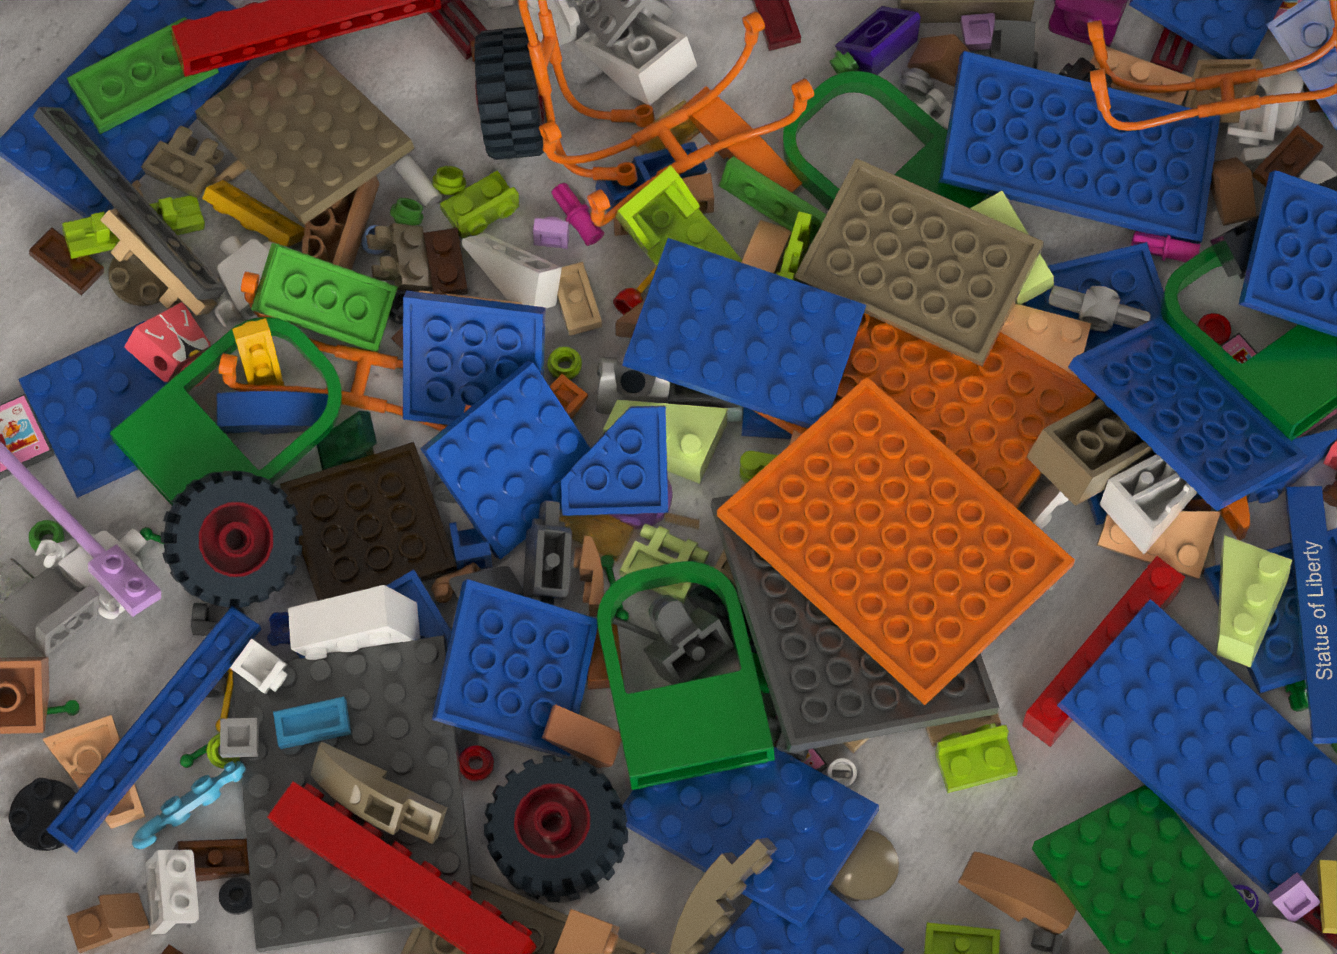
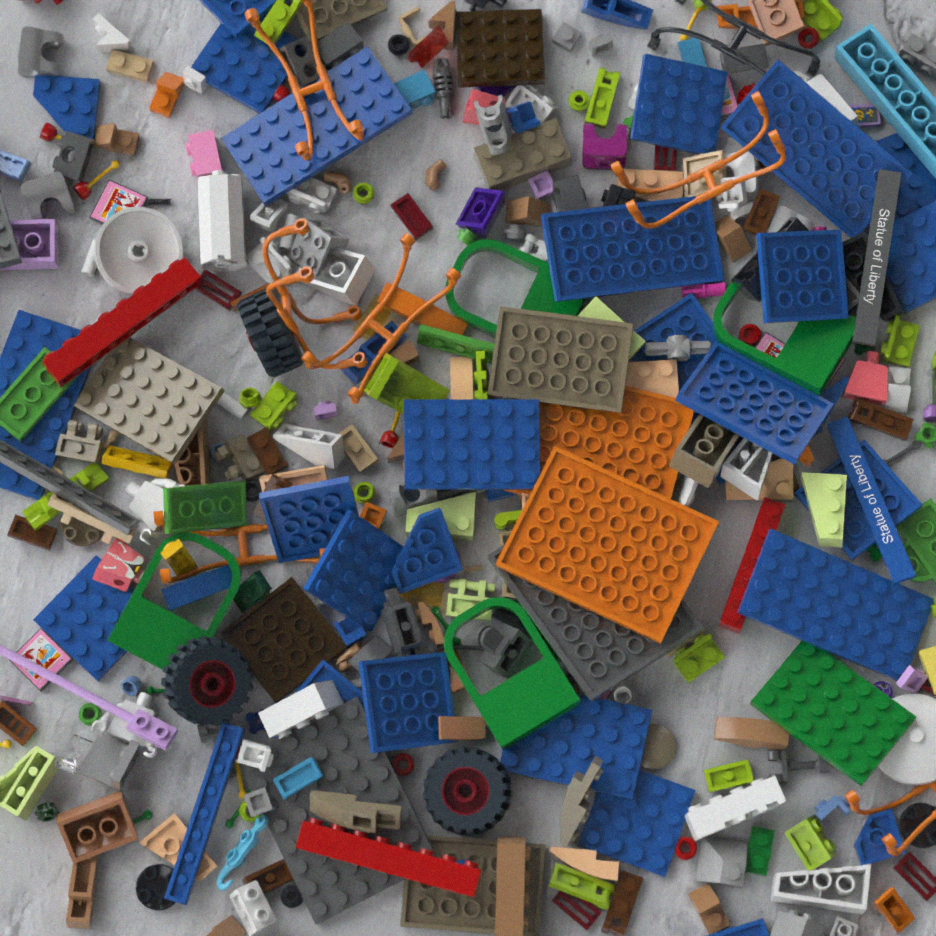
camera: 15 degrees left, 10 degrees up
(124, 520) = (131, 685): none -> medium blue hinge
(407, 212) = (231, 427): bright green plate -> none
(577, 214) = (335, 391): dark pink axle -> none

